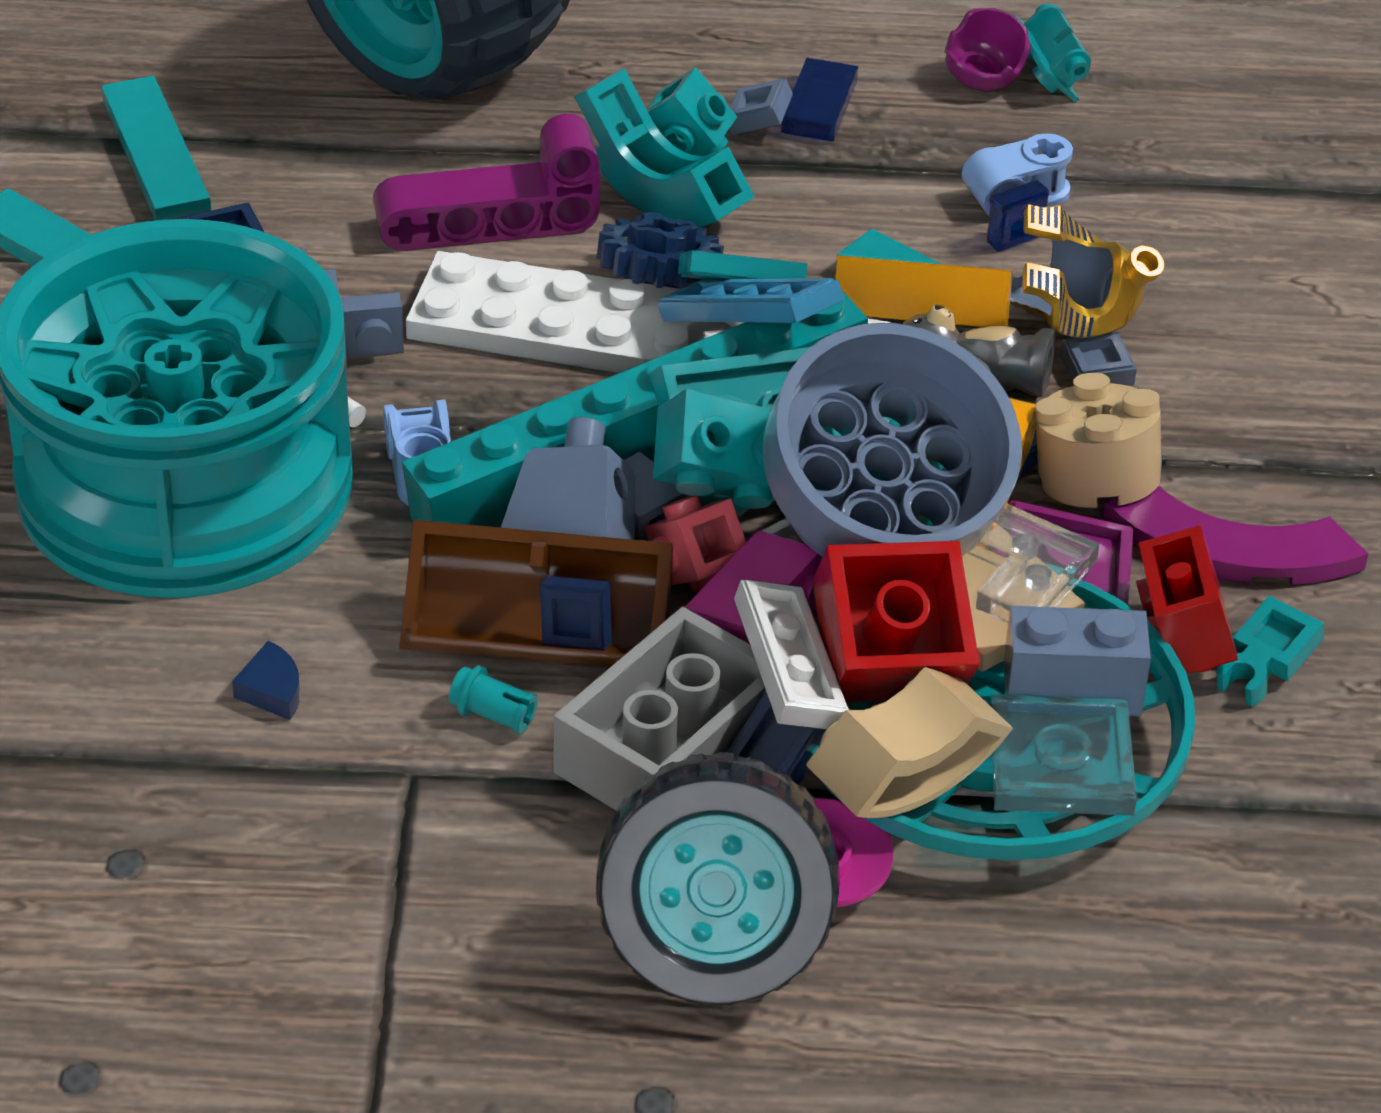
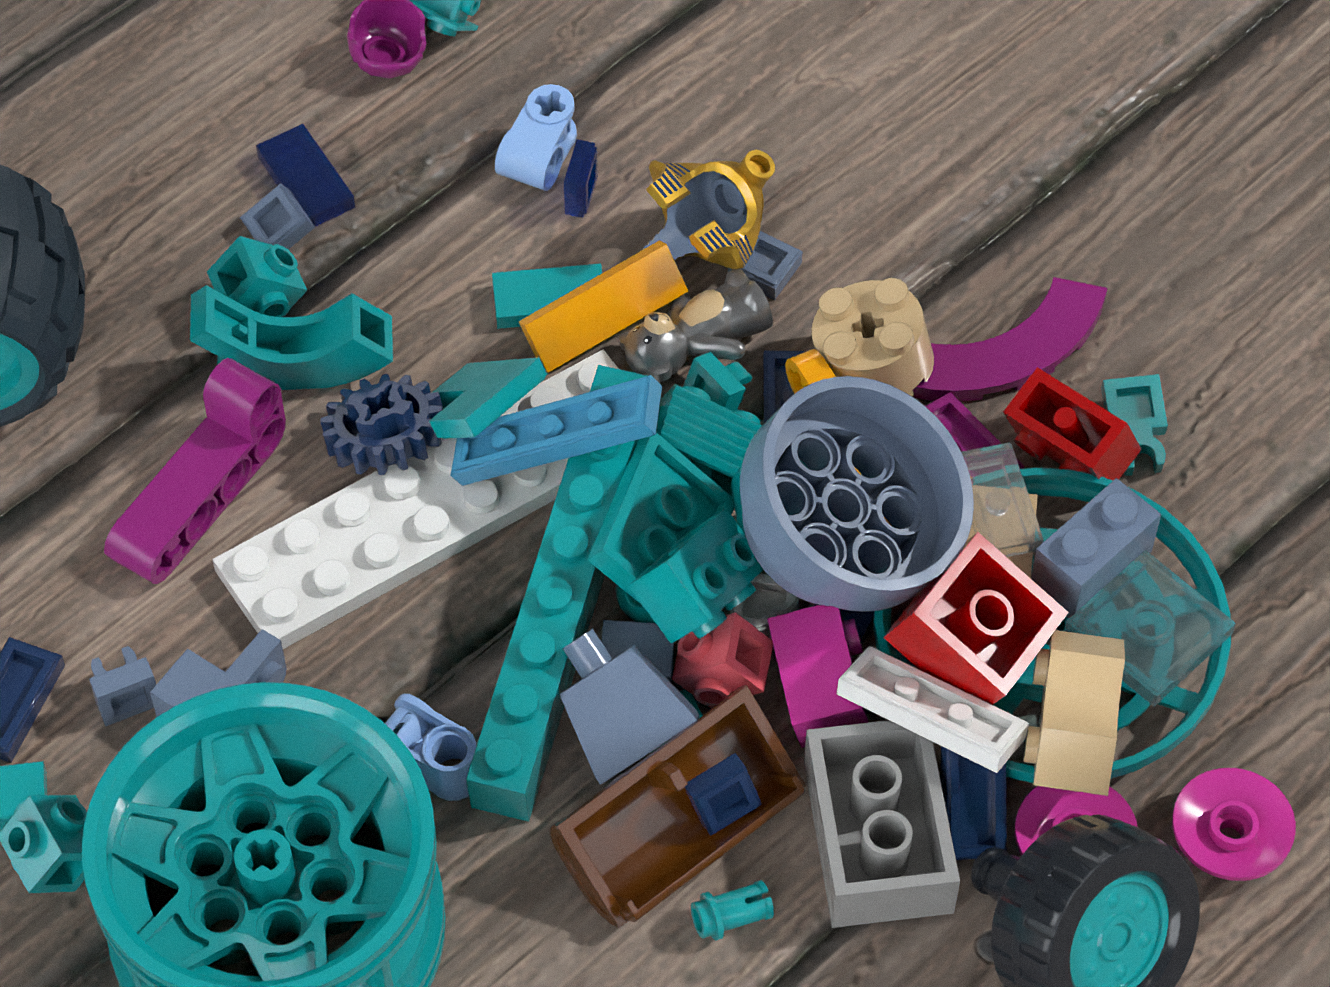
camera: 45 degrees left, 15 degrees up
(963, 949) = (1240, 802): none -> dark pink dish

